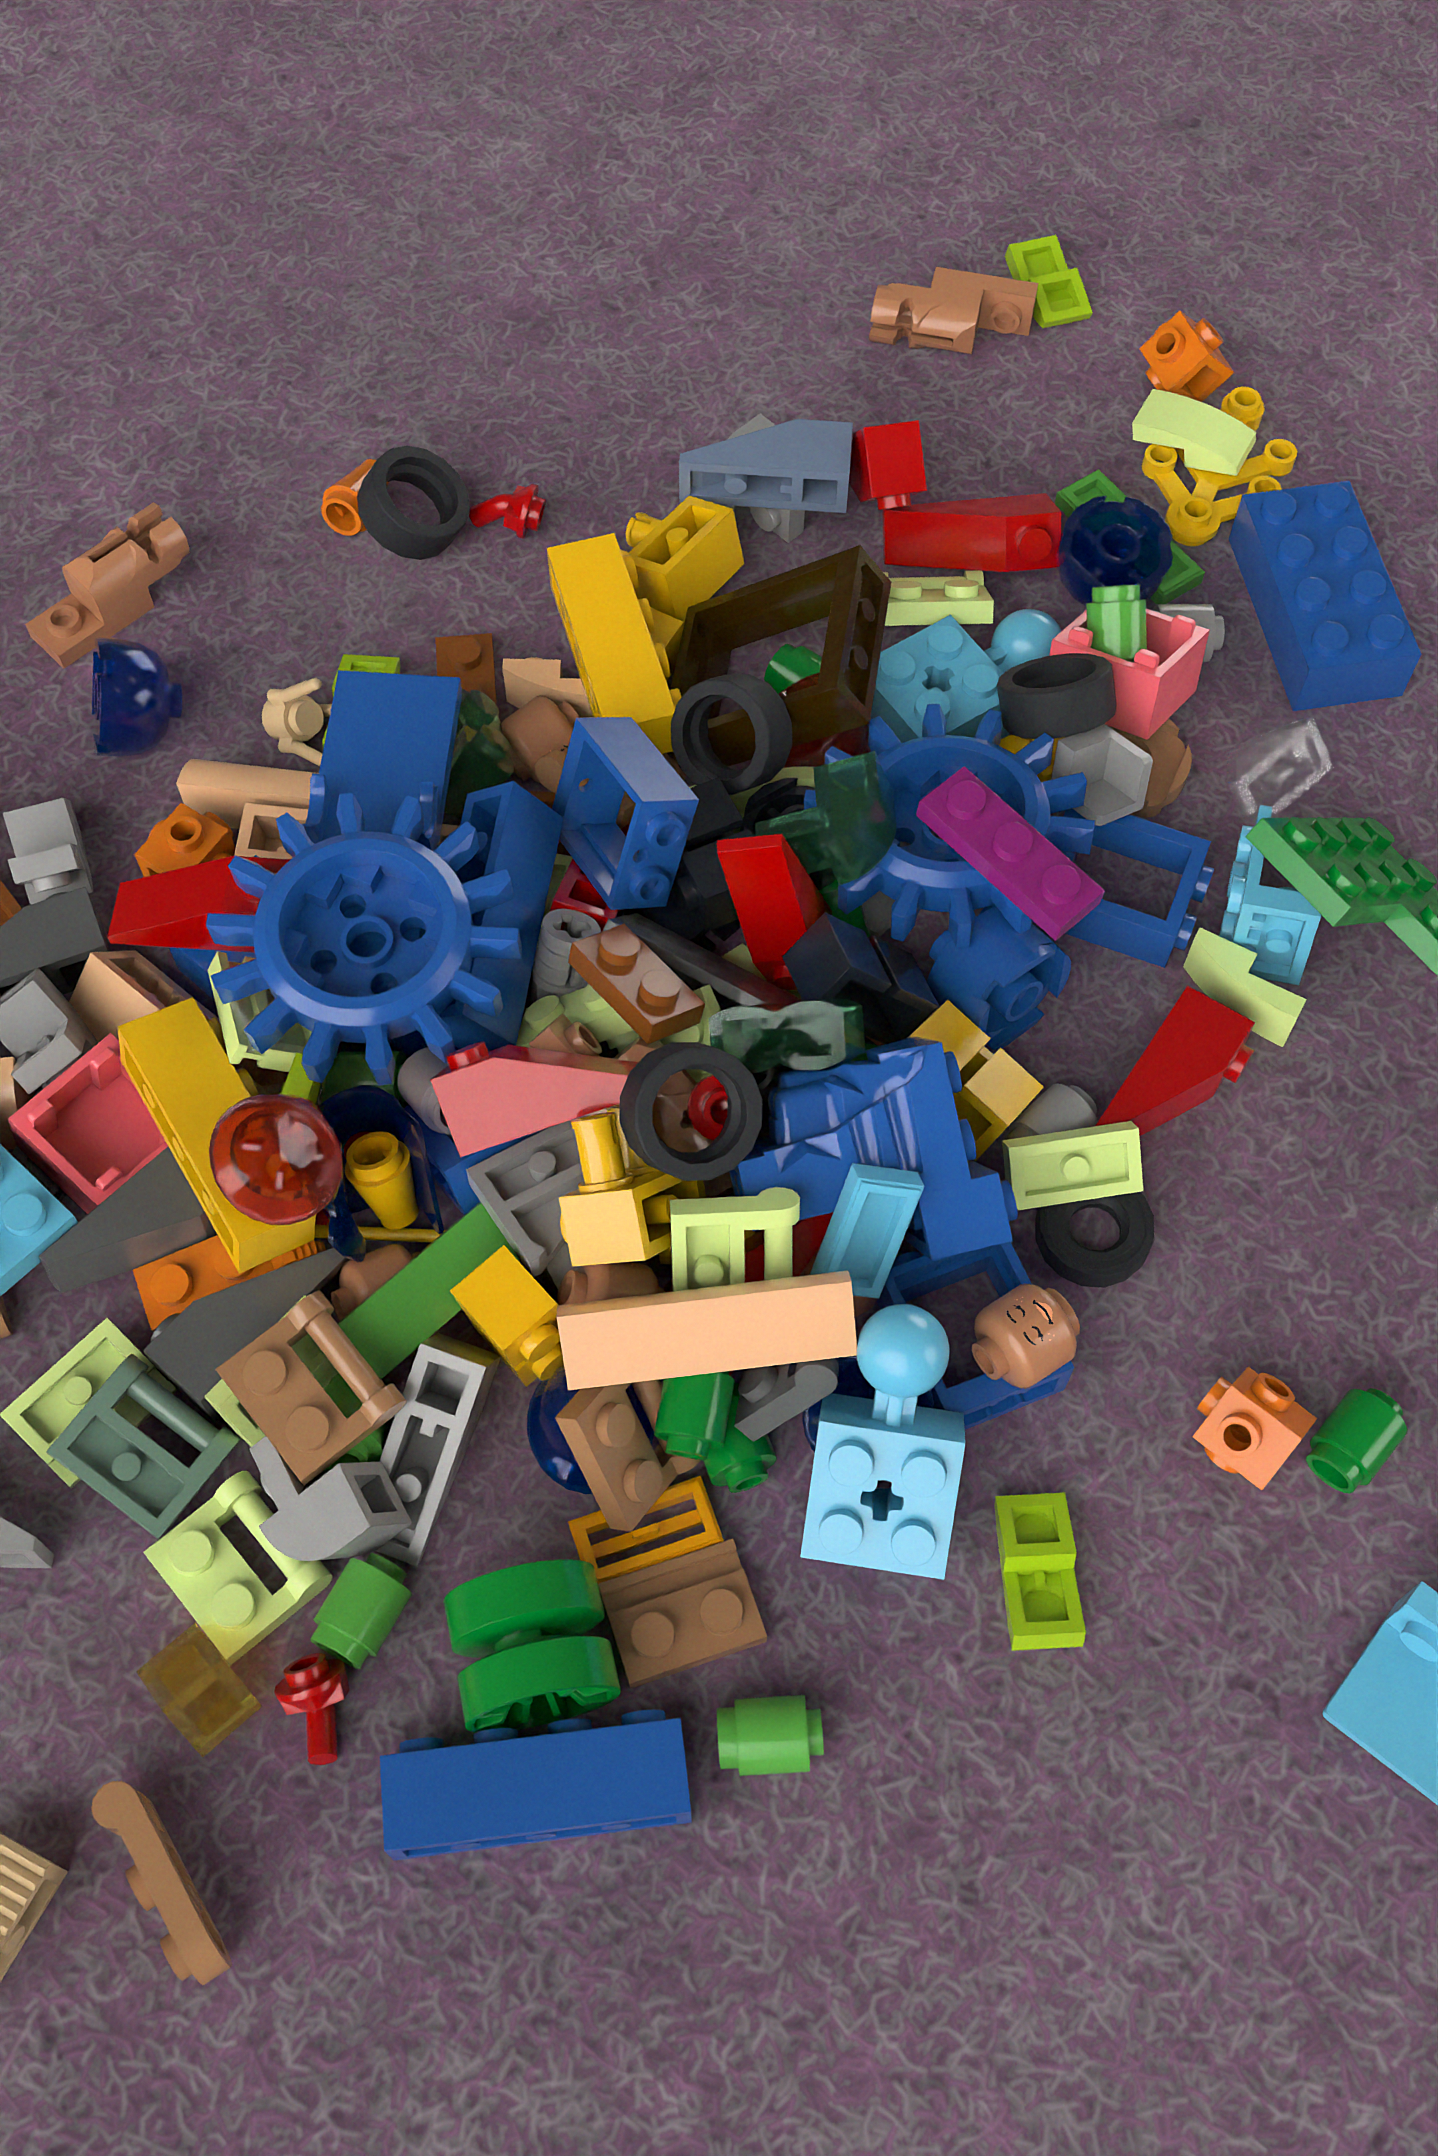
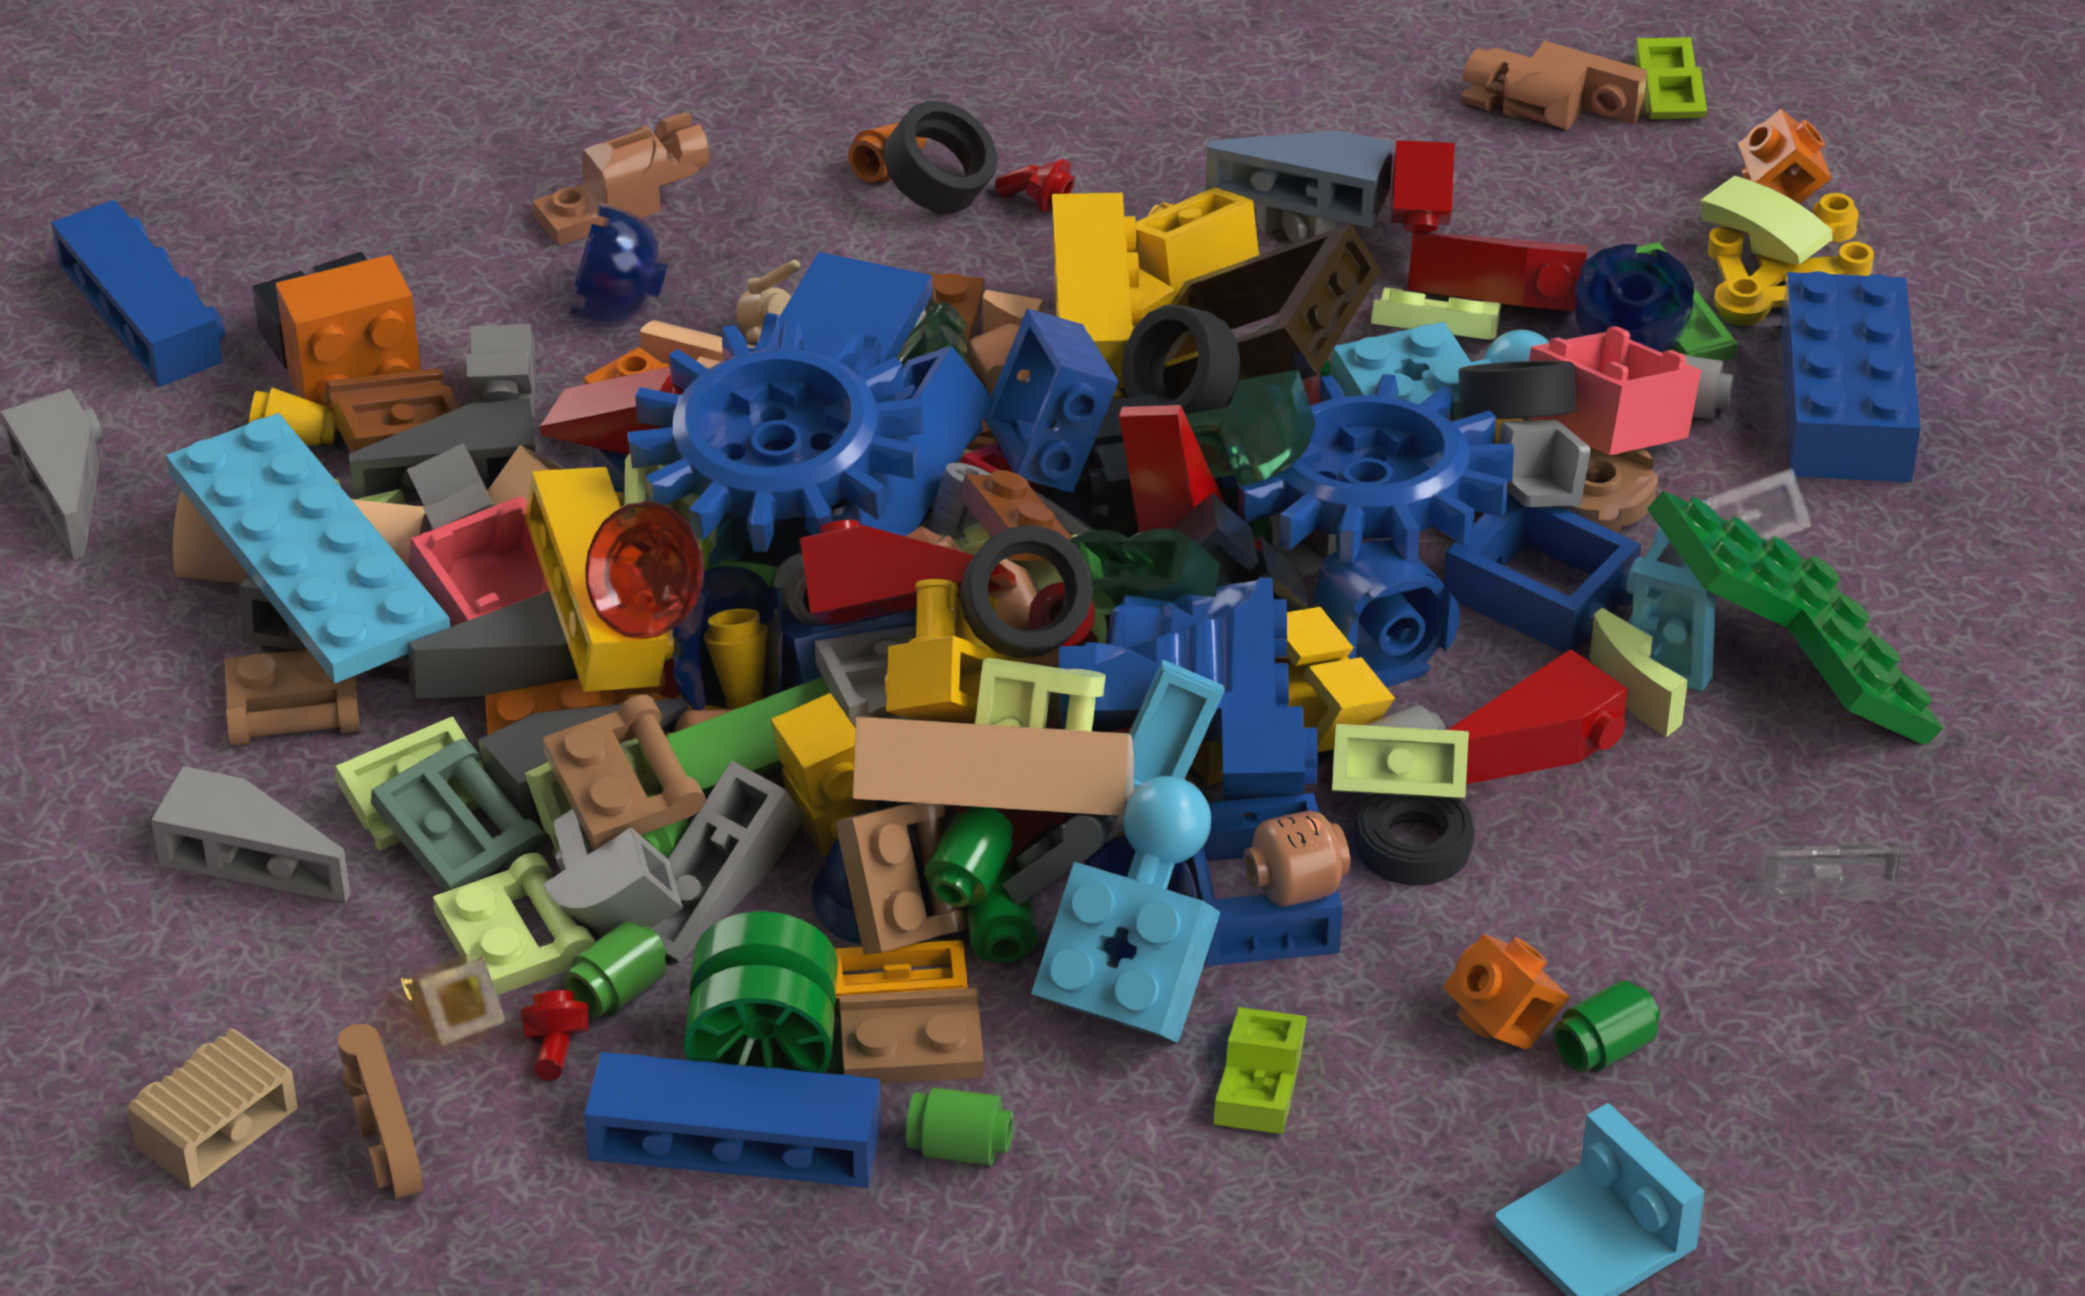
camera: 15 degrees right, 20 degrees down
(1010, 853) = (1408, 481): magenta plate -> none
(1117, 620) = (1605, 337): bright green brick -> none

